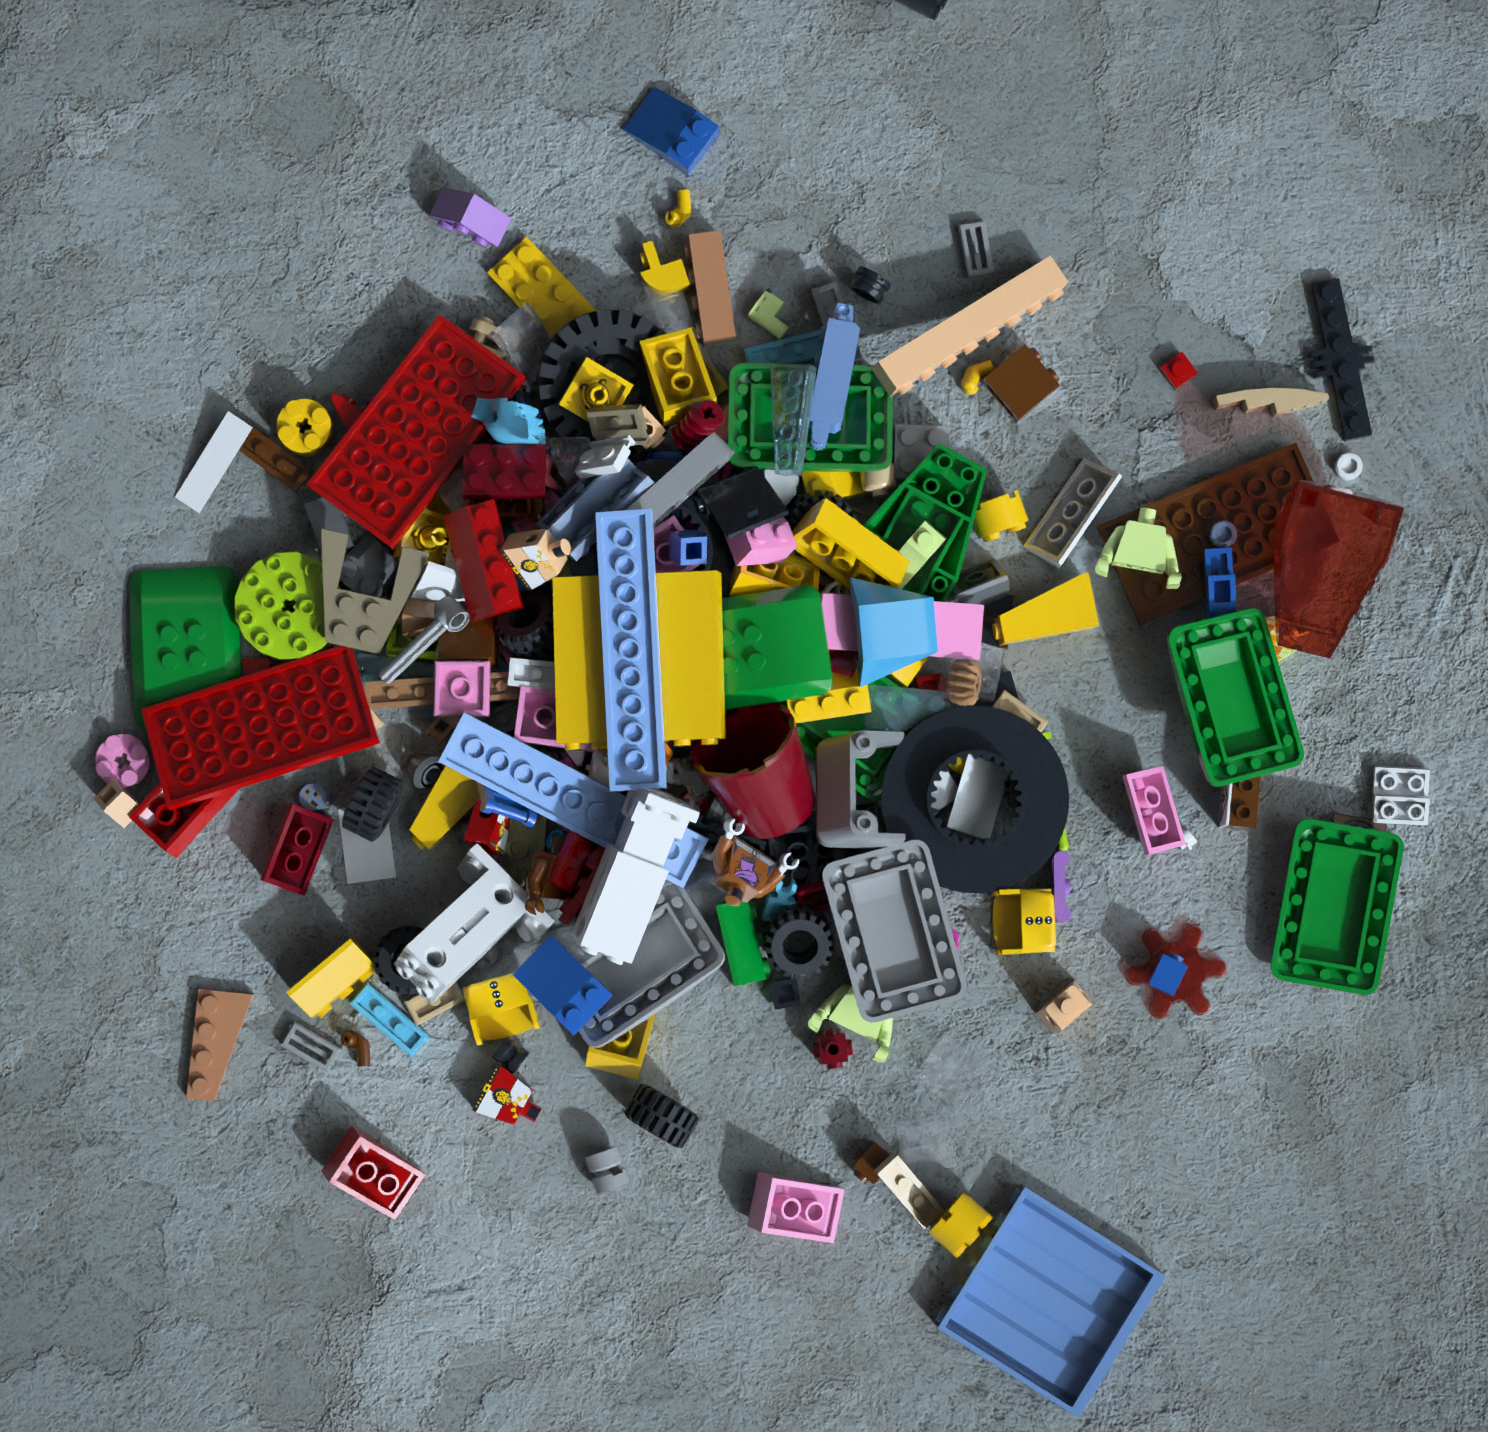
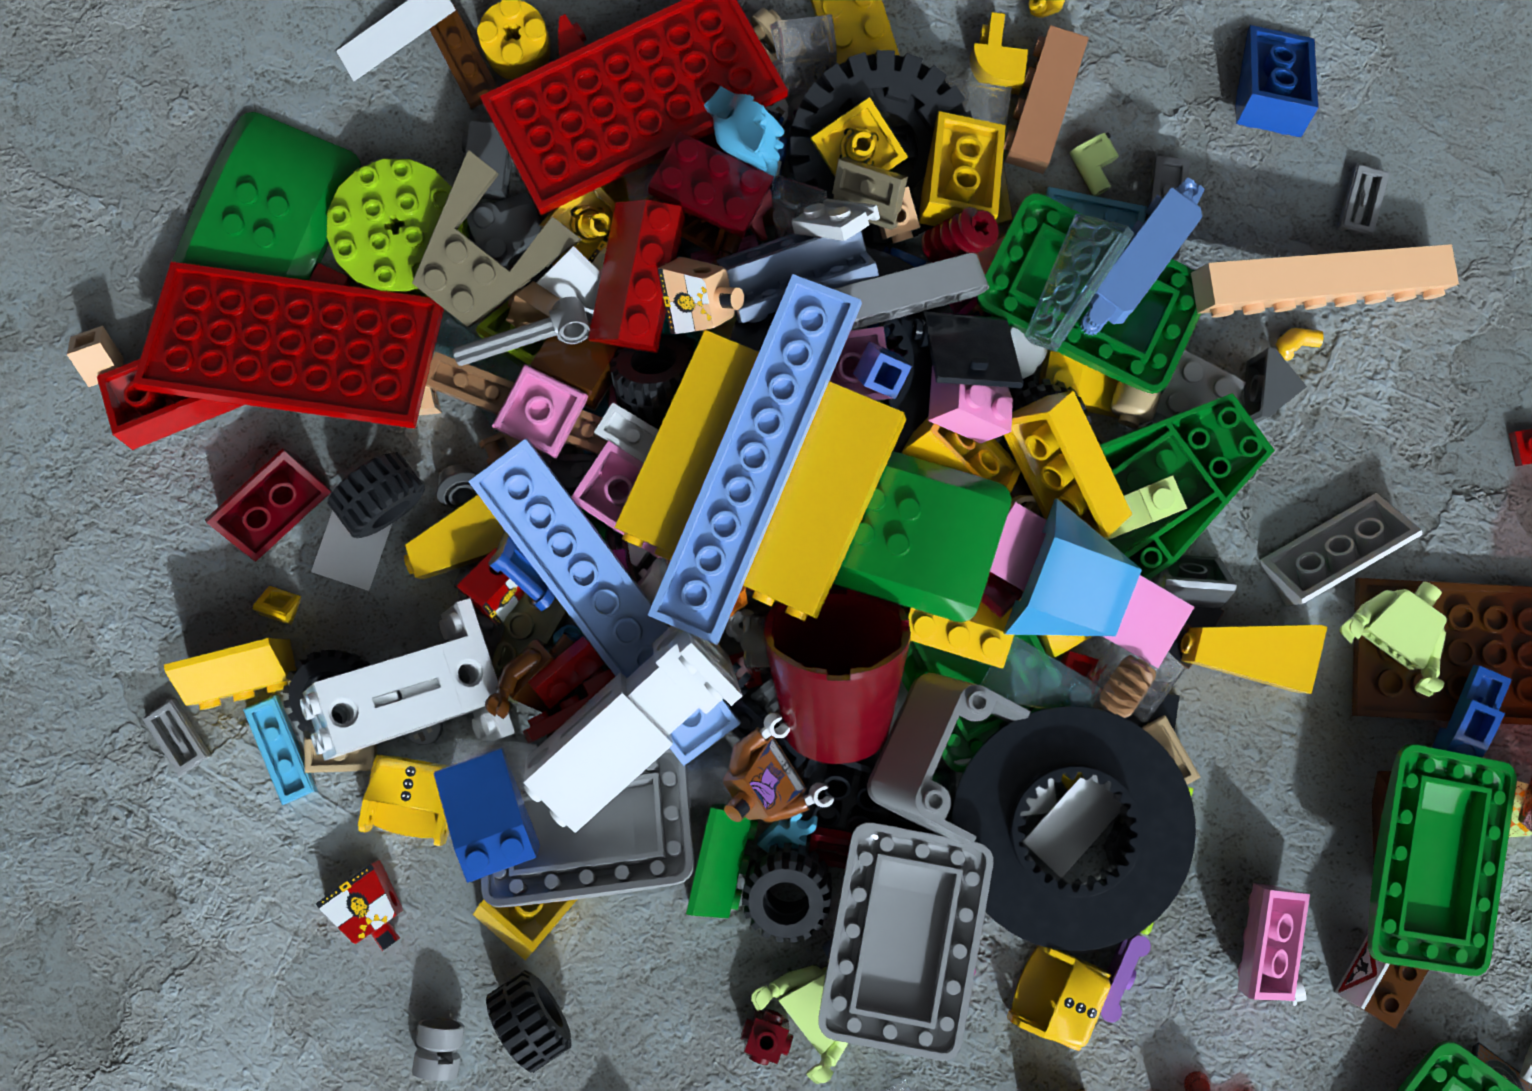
camera: 25 degrees right, 0 degrees up
(136, 753) = (112, 303): bright pink plate -> none
(214, 1038) = (77, 668): nougat wing -> none
(313, 797) = (320, 455): sand blue tile -> none
(336, 918) = (277, 605): none -> yellow slope
(359, 1044) = (231, 761): reddish brown arm -> none
(372, 1173) = (169, 917): red slope -> none
(510, 1054) = (394, 858): black wheel -> none
(785, 993) = (742, 943): black plate -> none
(869, 285) = (1226, 181): black wheel -> none
(872, 192) = (1277, 82): none -> blue slope
(968, 422) = (1269, 384): none -> dark grey slope
(998, 515) = (1256, 510): yellow brick -> none
(1021, 383) = (1347, 374): reddish brown piece -> none
(1222, 534) = (1503, 657): sand blue tile -> none

